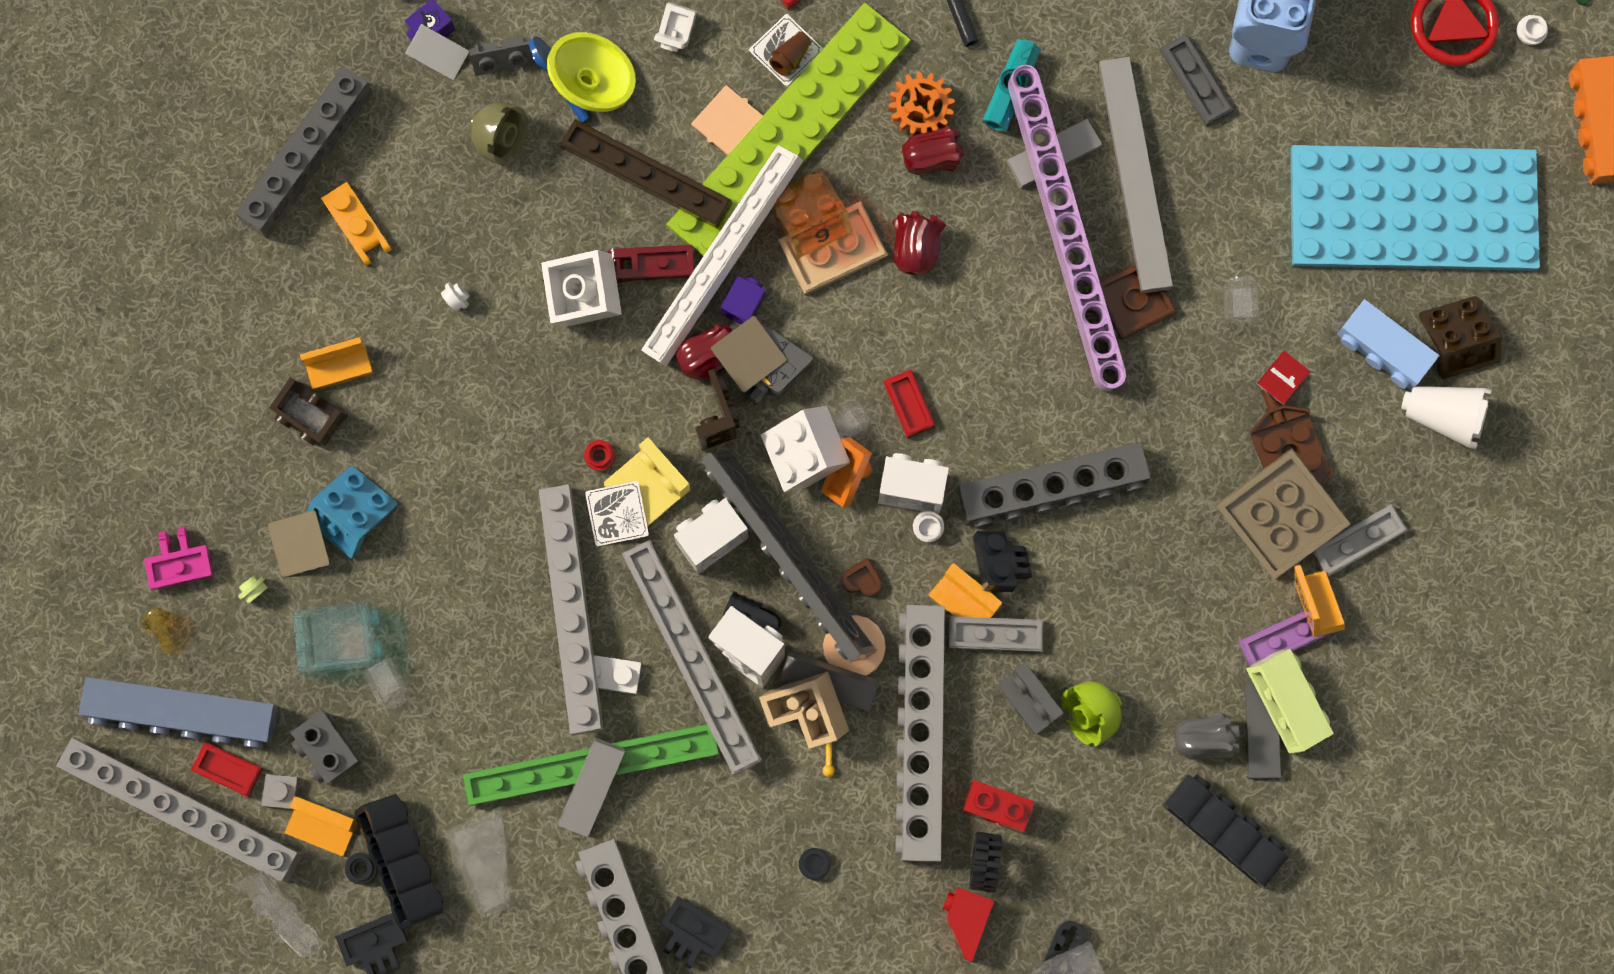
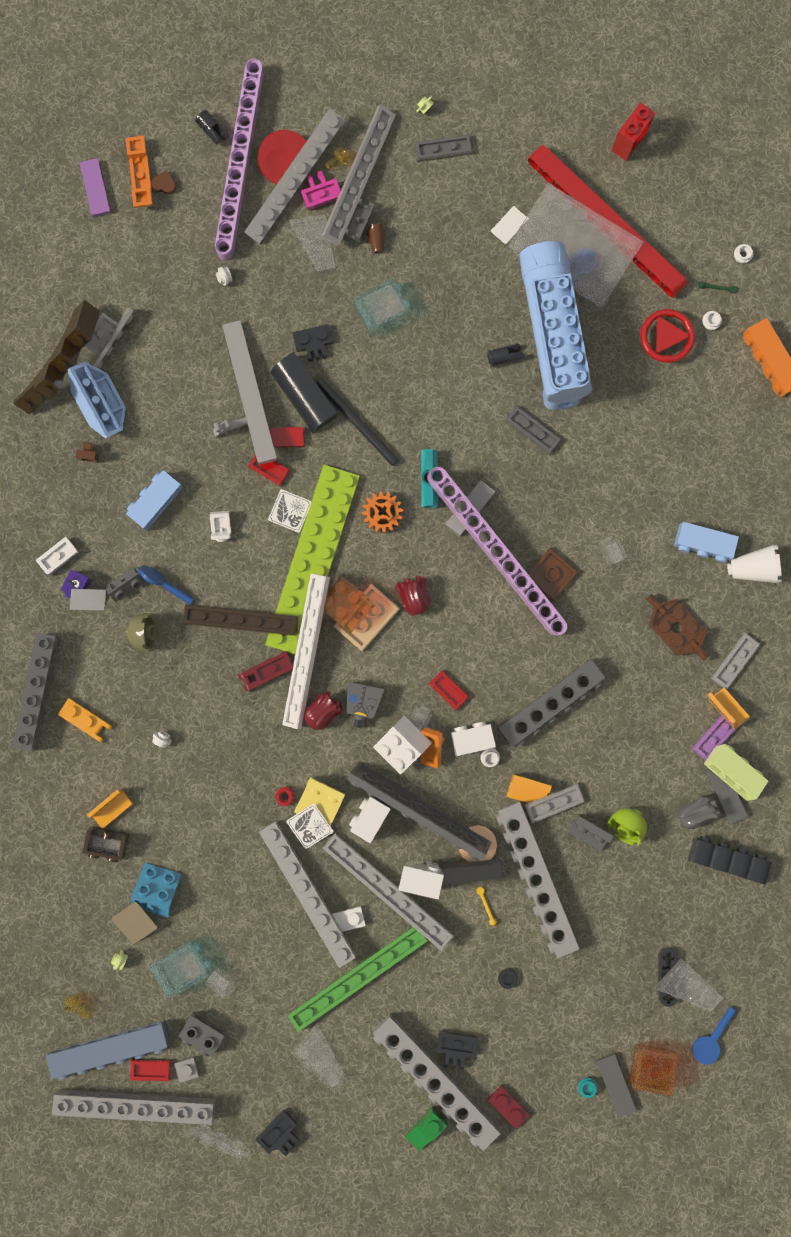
camera: 25 degrees left, 5 degrees up
(178, 566) = (71, 966): dark pink hinge -> none
(320, 826) = (218, 1078): light orange panel -> none
(350, 868) = (252, 1099): black plate -> none
(399, 863) = (270, 1080): black brick -> none
(581, 288) = (233, 705): white brick -> none
(591, 72) = (185, 566): neon yellow dish -> none
(591, 787) = (364, 992): light grey tile -> none
(714, 430) = (345, 756): dark brown bracket -> none
(726, 120) = (273, 567): light nougat piece -> none
(743, 299) = (329, 671): dark purple brick -> none
(748, 354) = (346, 703): dark tan sticker -> none
(753, 611) = (412, 851): black hinge -> none
(789, 55) = (293, 515): reddish brown cone -> none
(812, 703) = (467, 891): tan brick -> none
(862, 578) = (464, 803): reddish brown tile -> none
(933, 151) = (401, 537): dark red piece -> none
(967, 919) = (607, 973): red slope -> none
(985, 862) = (604, 938): black tyre -> none
(997, 806) = (597, 903): red brick -> none
(1000, 563) = (539, 761): black hinge -> none
(1135, 175) = (522, 501): light grey tile -> none
(1283, 377) = (655, 585): red sticker -> none
(1283, 513) = (688, 666): dark tan plate -> none
(1414, 208) = (687, 453): medium azure plate -> none
(1462, 336) = (745, 517): dark brown bracket -> none

